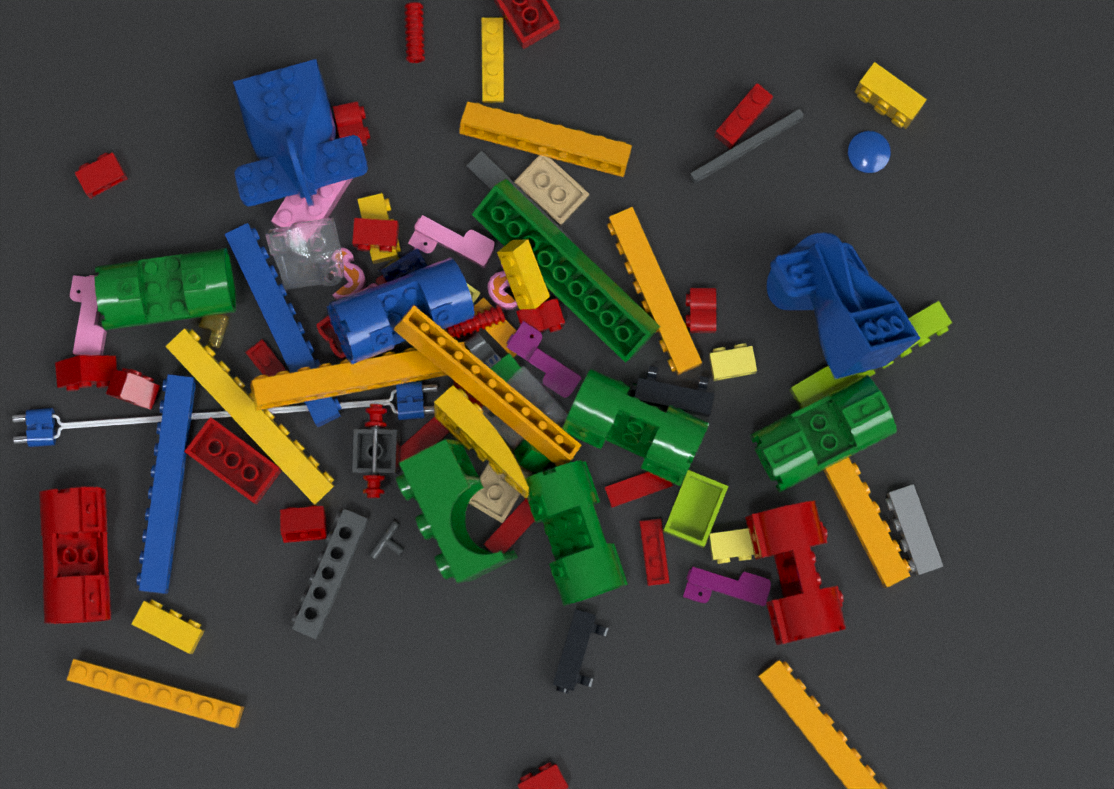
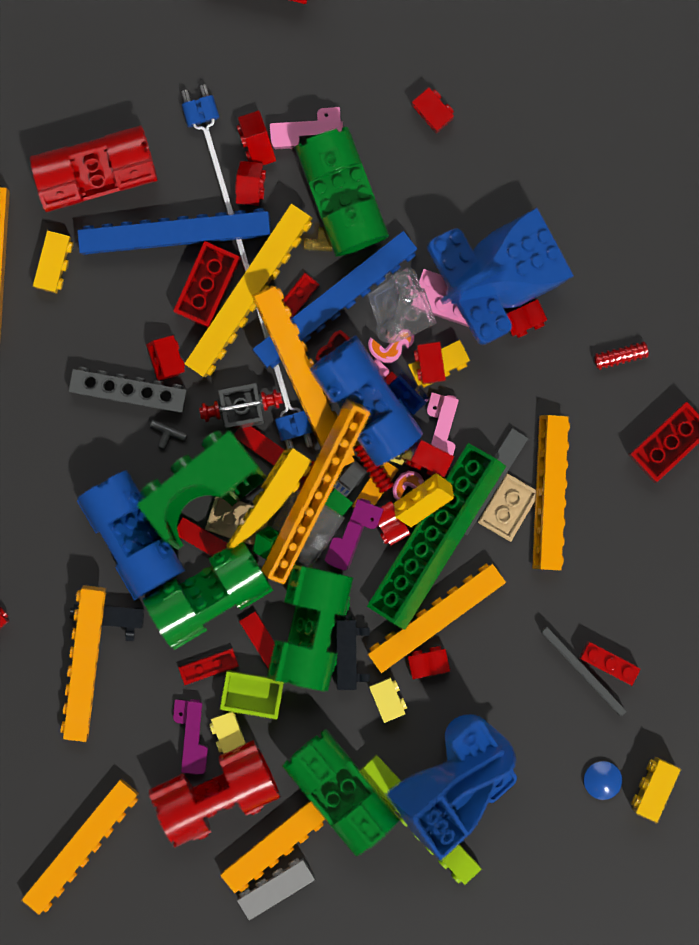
camera: 80 degrees right, 5 degrees up
(461, 613) = (141, 554): none -> blue cylinder
(477, 260) = (429, 457): none -> red brick
(492, 60) = (612, 430): yellow plate -> none
(620, 686) = (84, 663): none -> light orange brick

